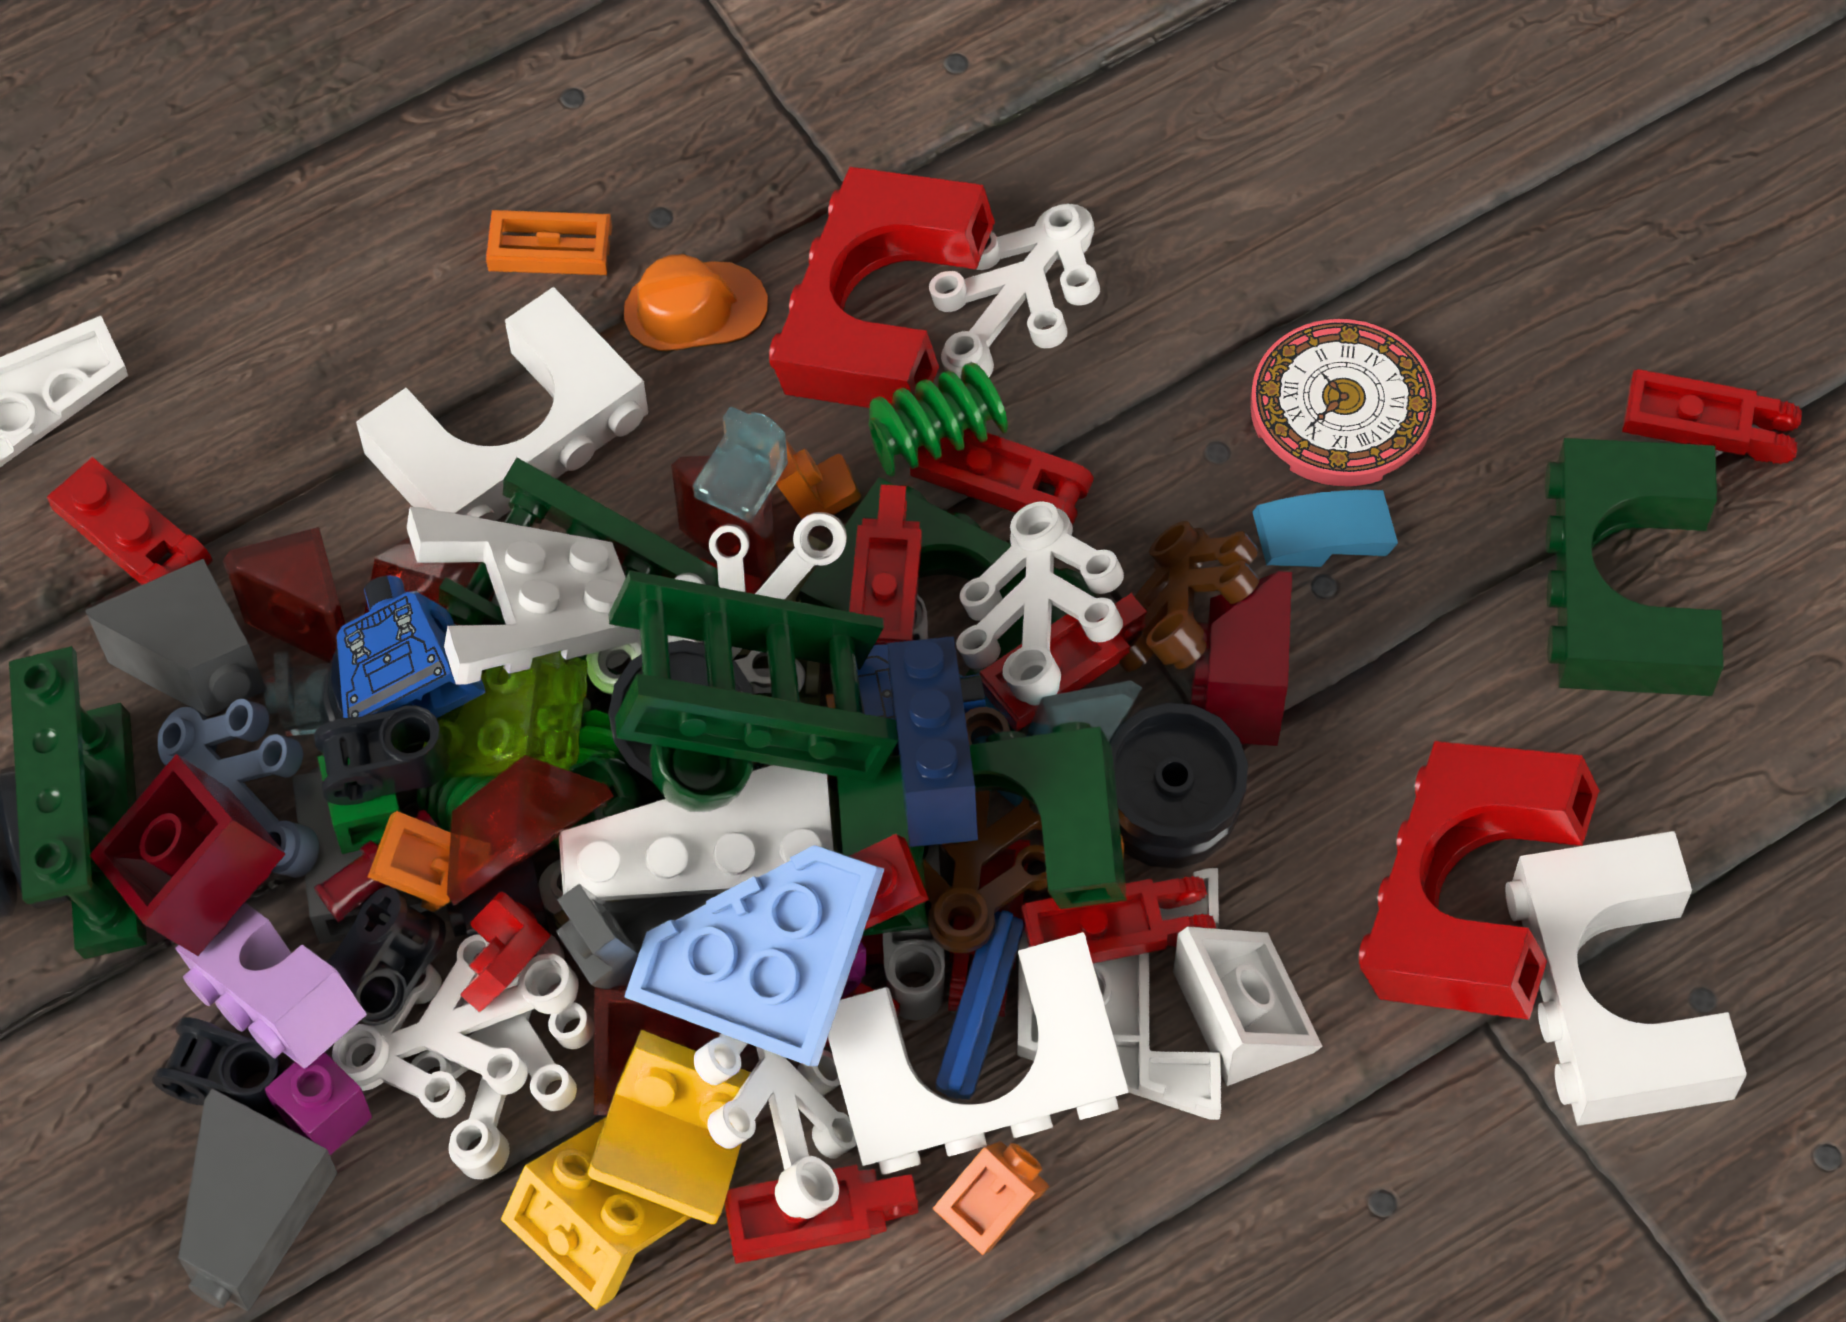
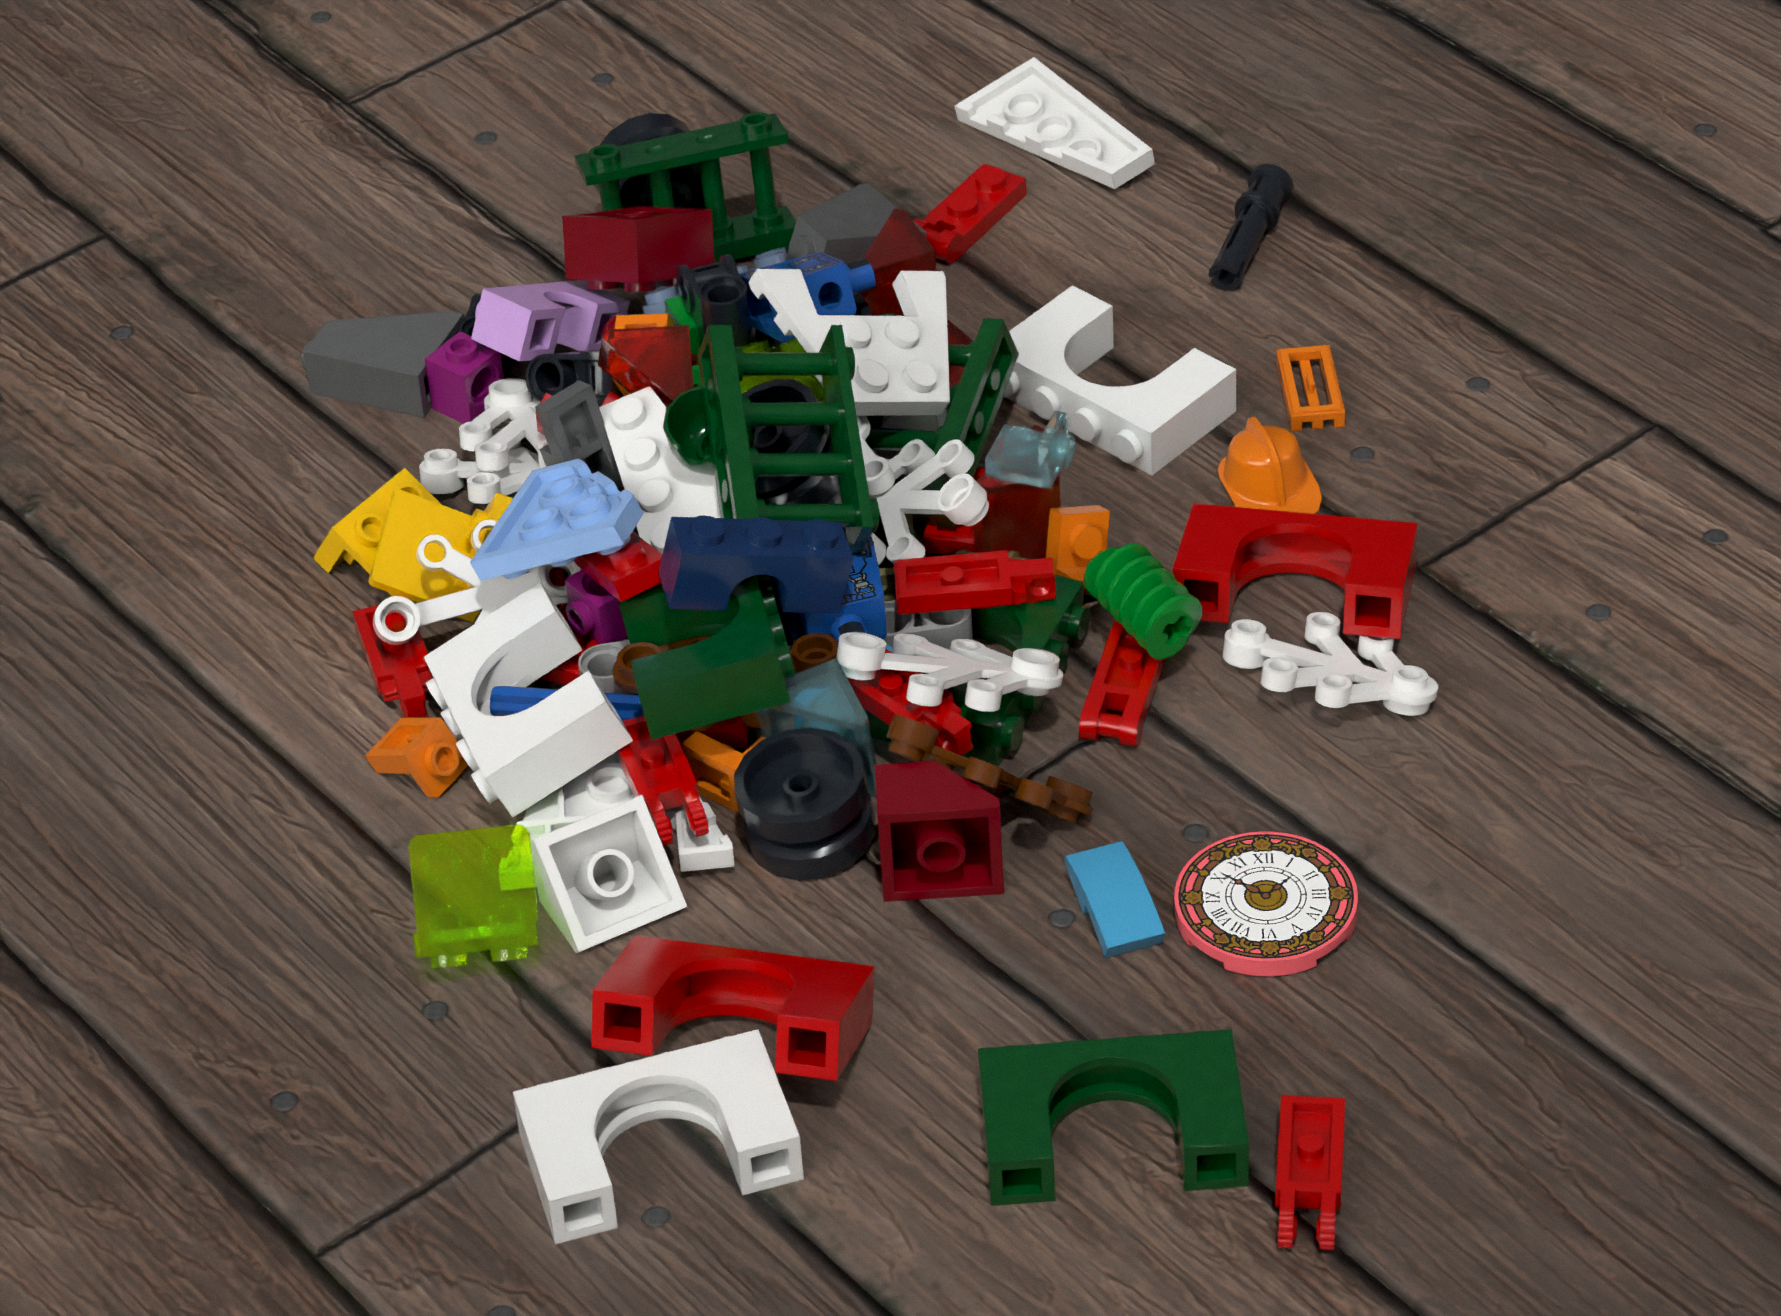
camera: 85 degrees right, 20 degrees down
(234, 243) = (1255, 214): none -> black pin
(1283, 1135) = (474, 894): none -> clear neon green bracket

